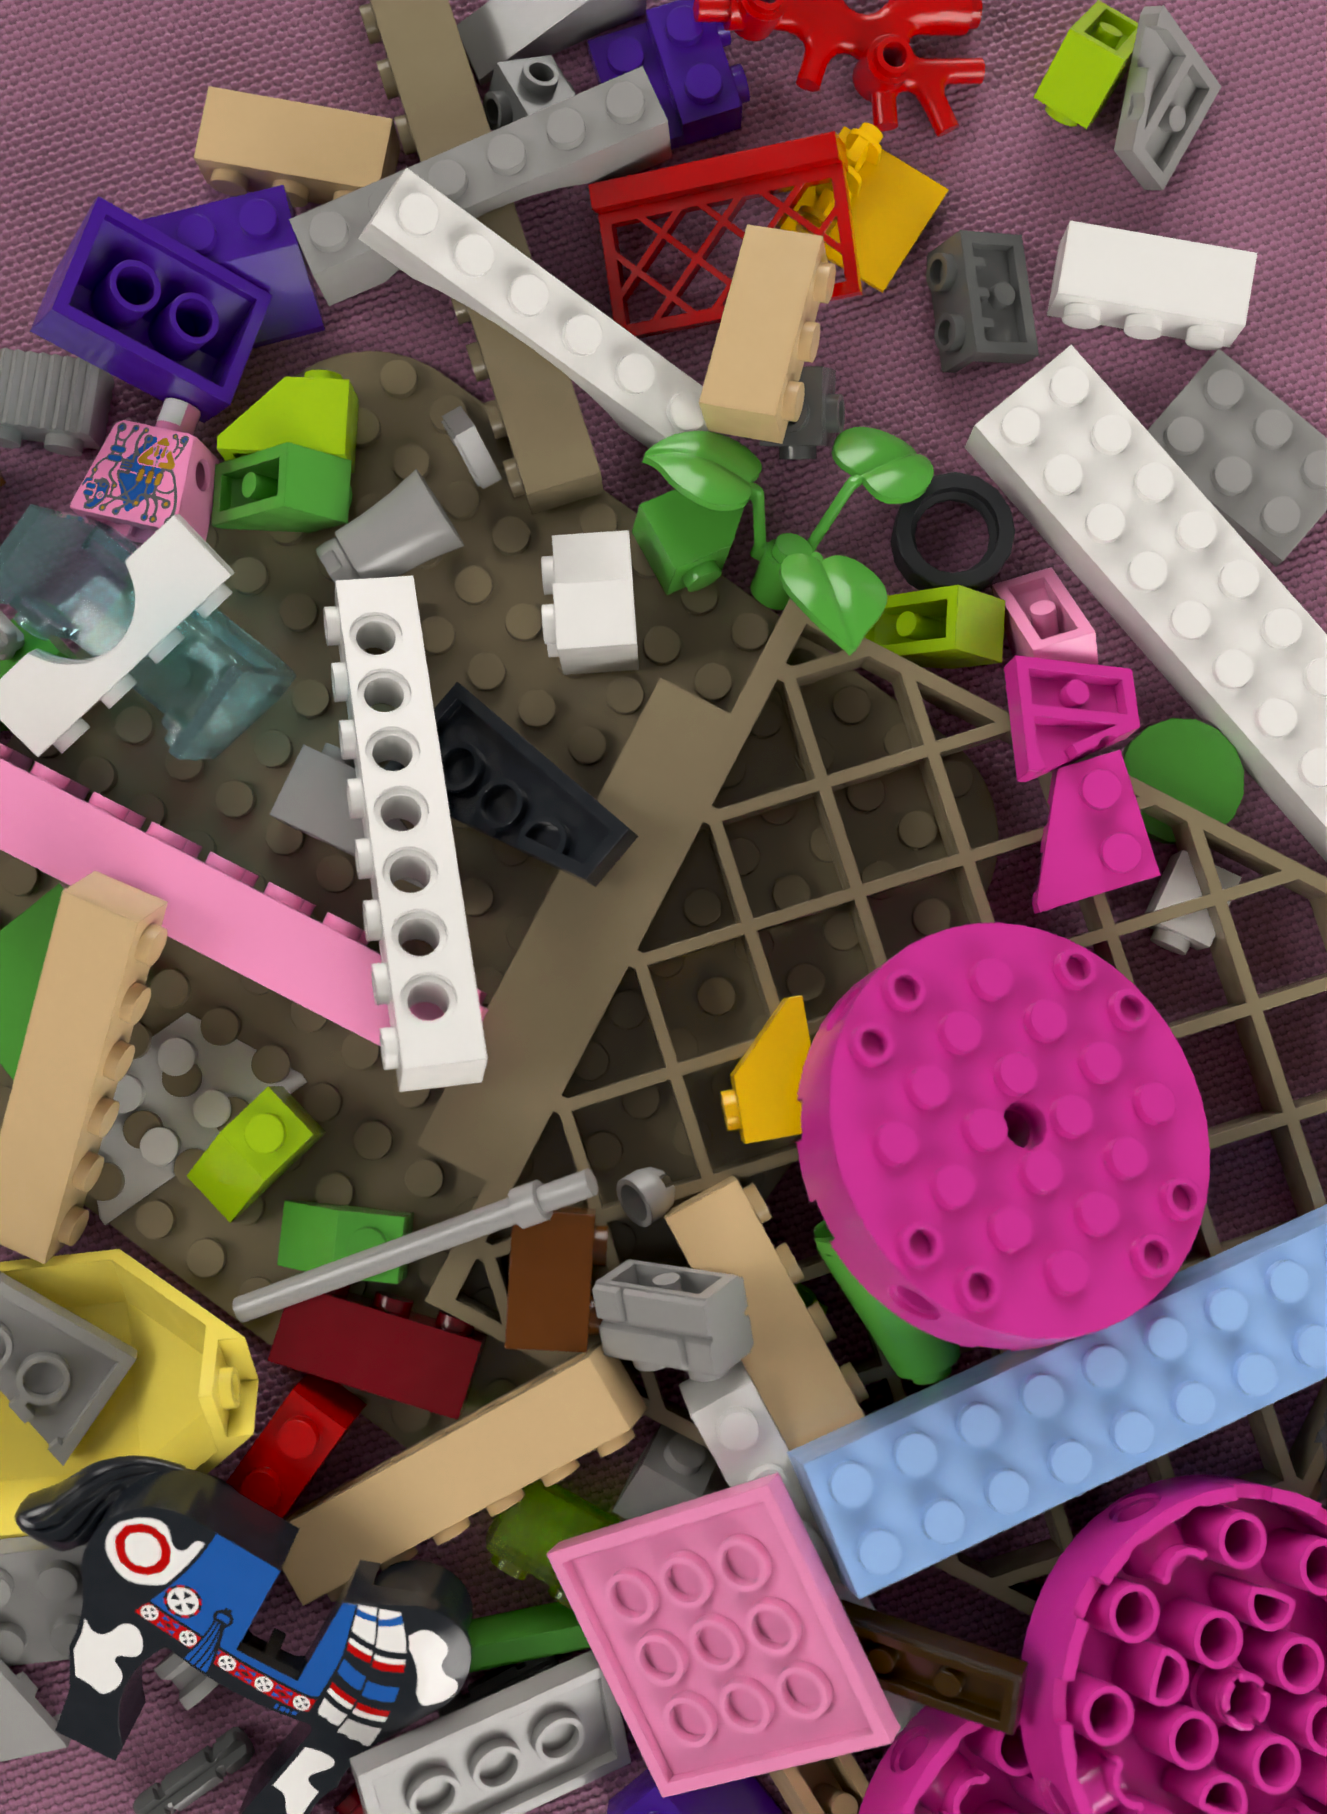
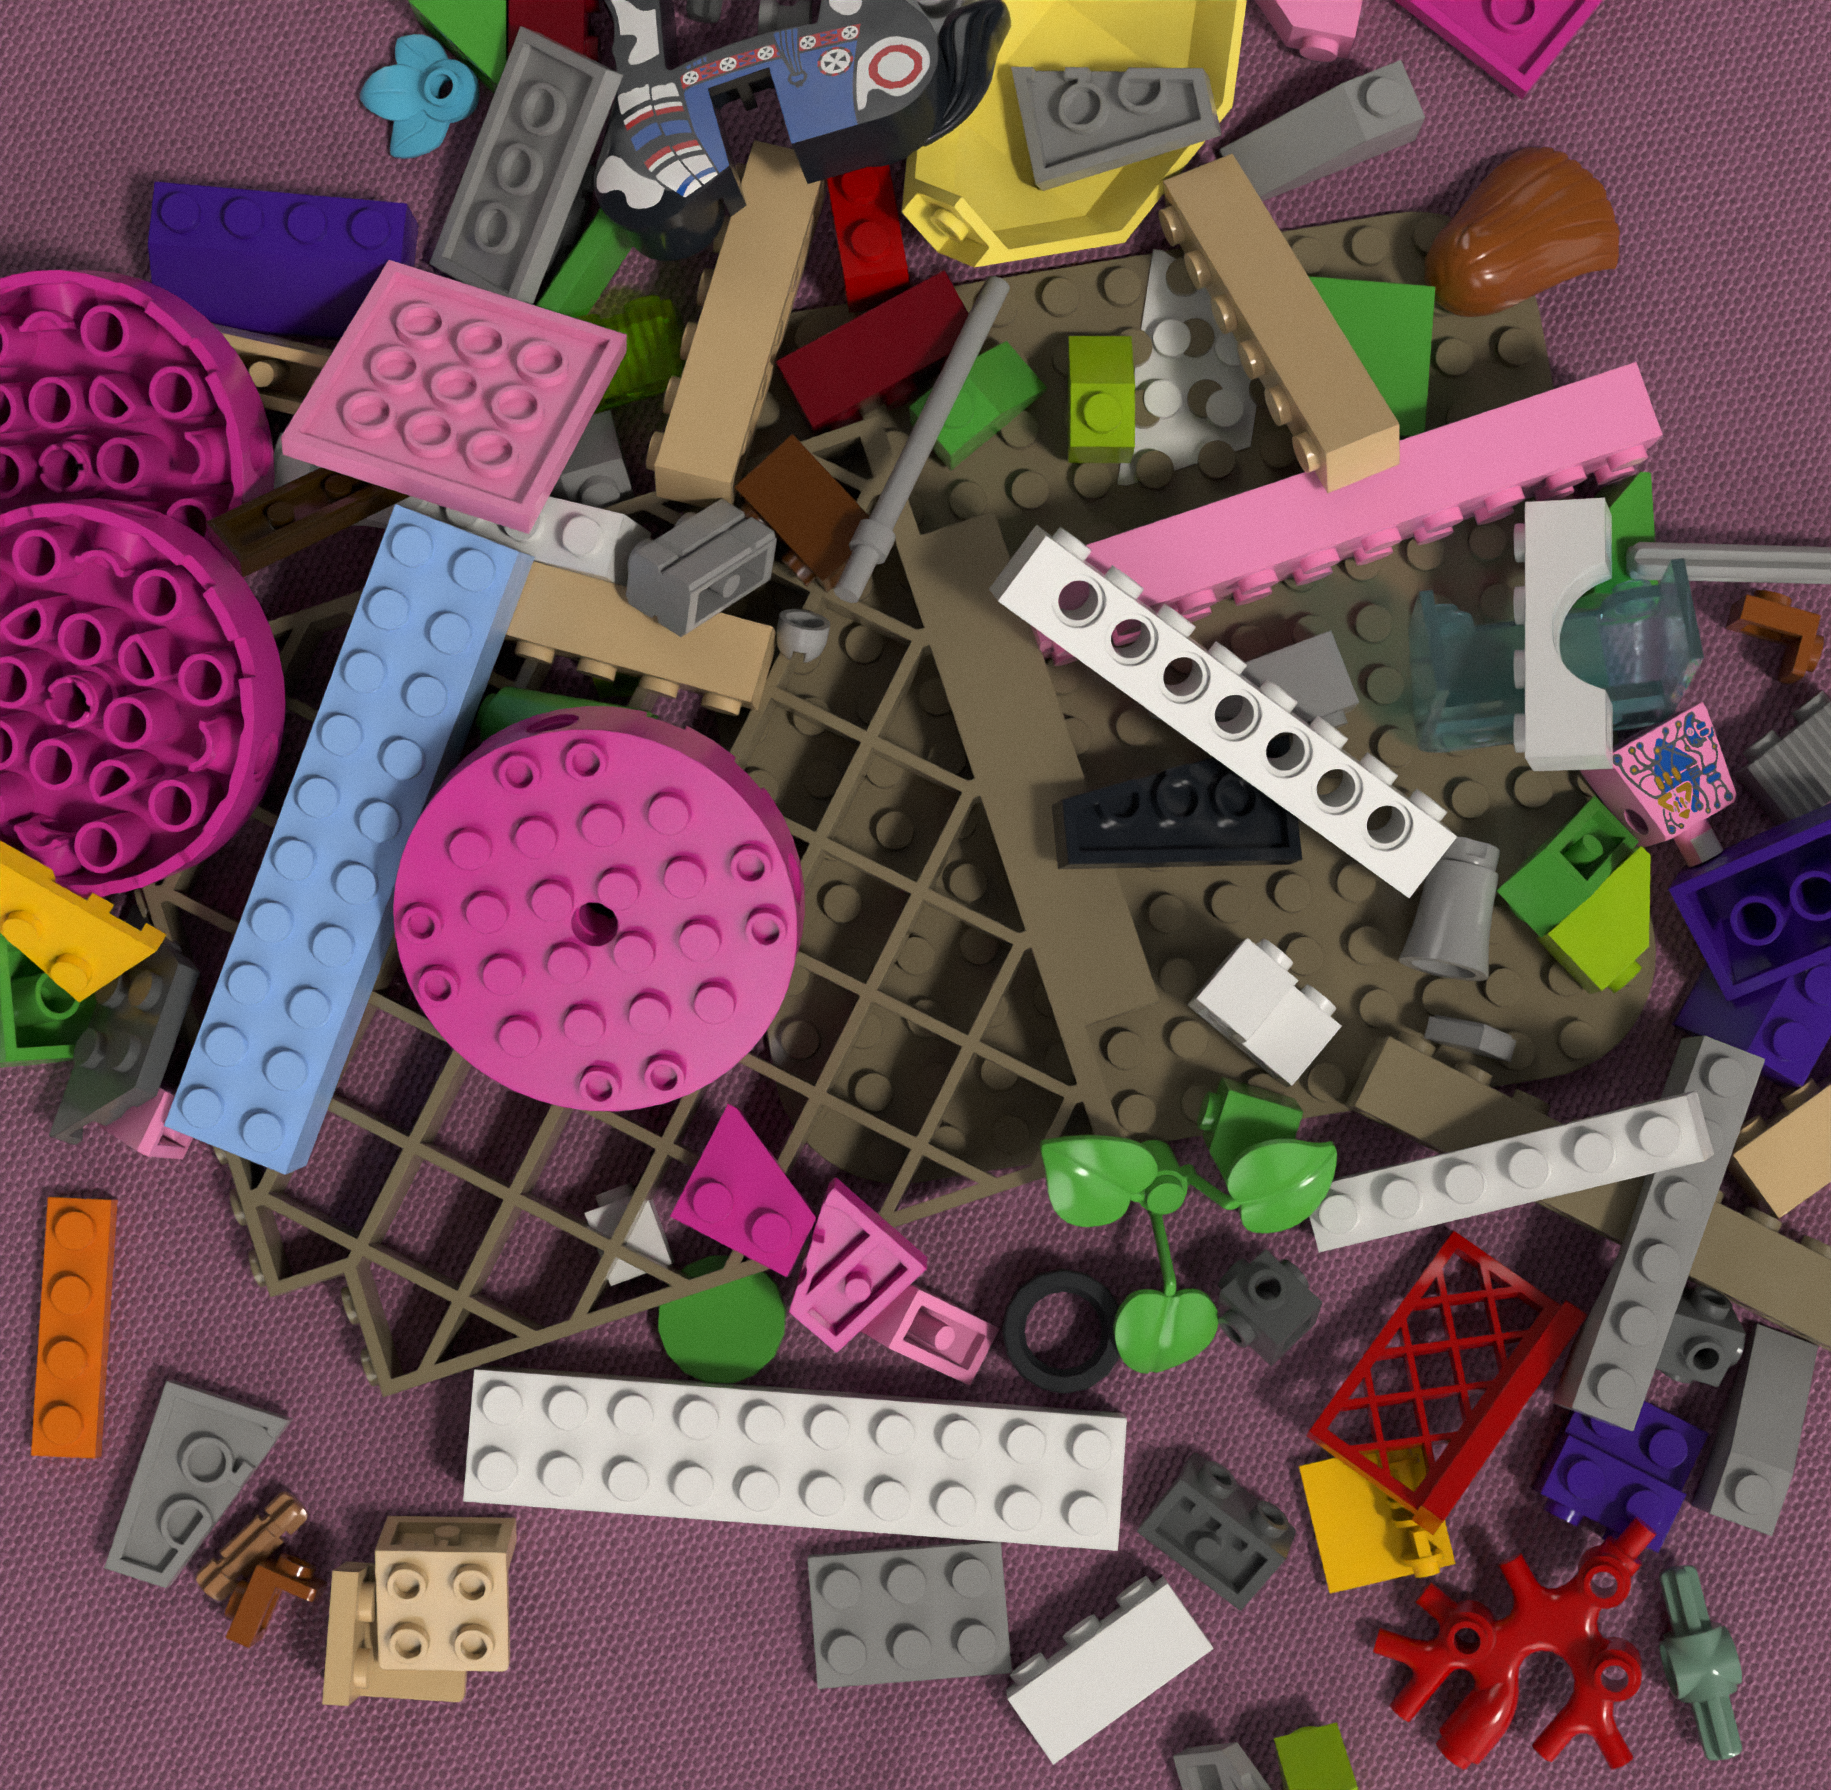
camera: 135 degrees right, 0 degrees up
(767, 334) = (1338, 1323): tan brick -> none
(769, 1076) = (801, 794): yellow slope -> none
(942, 627) = (1004, 1248): lime slope -> none

